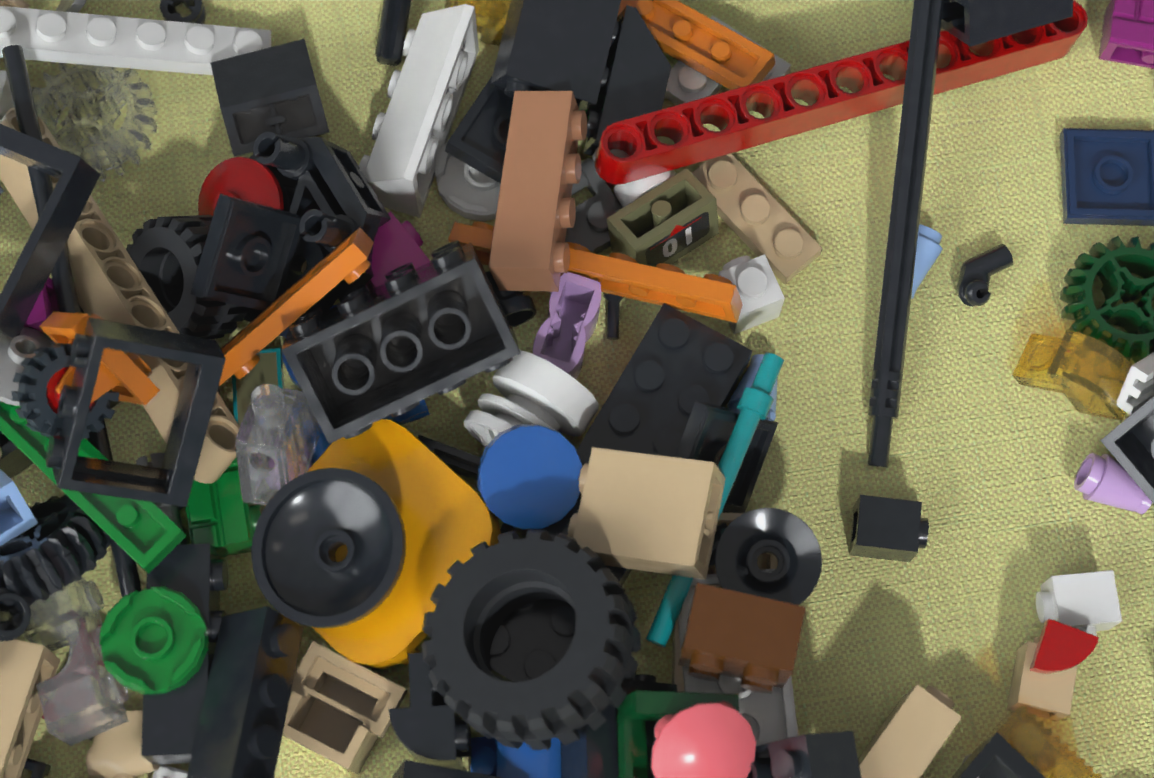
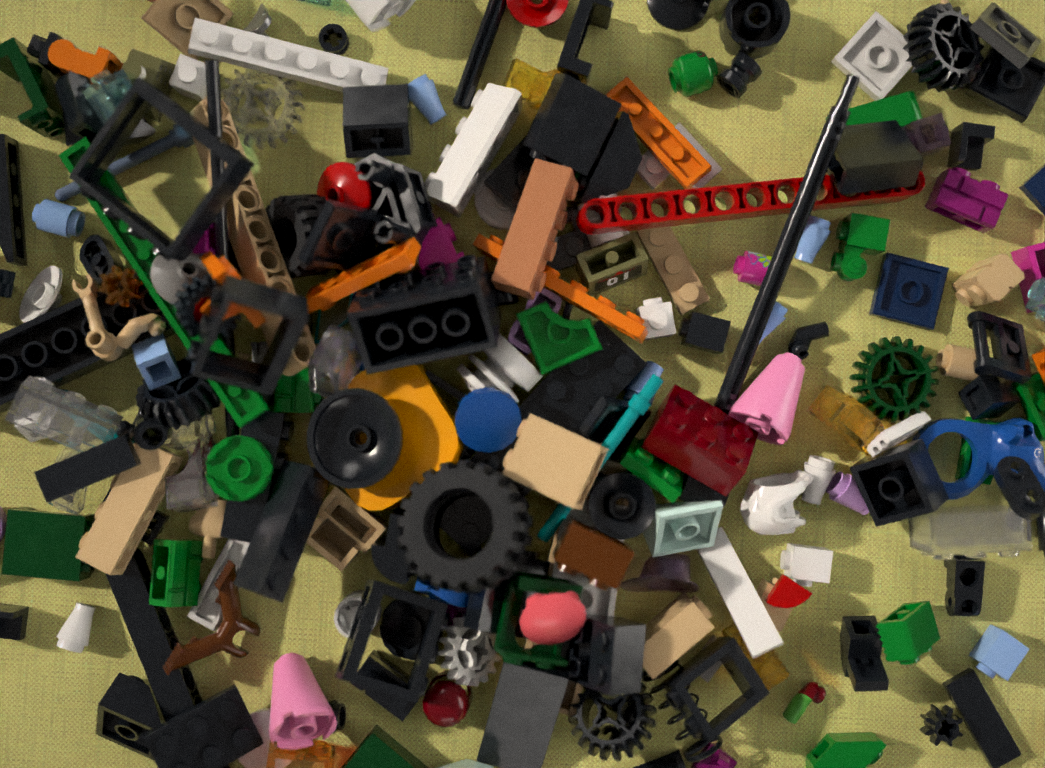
camera: 15 degrees right, 15 degrees up
(335, 59) = (426, 99): none -> light blue cone
(605, 340) = (556, 339): none -> green tile
(823, 512) = (653, 470): none -> green plate
(827, 296) = (704, 332): none -> black brick
(858, 674) = (663, 574): none -> piece
(863, 446) = (700, 440): none -> dark red brick
(870, 189) = (751, 267): none -> dark pink brick
(871, 583) = (683, 527): none -> light aqua slope
(948, 131) = (812, 239): none -> light blue cone
(952, 373) = (772, 399): none -> bright pink cone
(985, 668) = (740, 596): none -> white tile
(996, 523) = (769, 503): none -> white helmet
(1017, 115) = (858, 235): none -> green brick
(1056, 472) = (822, 472): none -> white cone

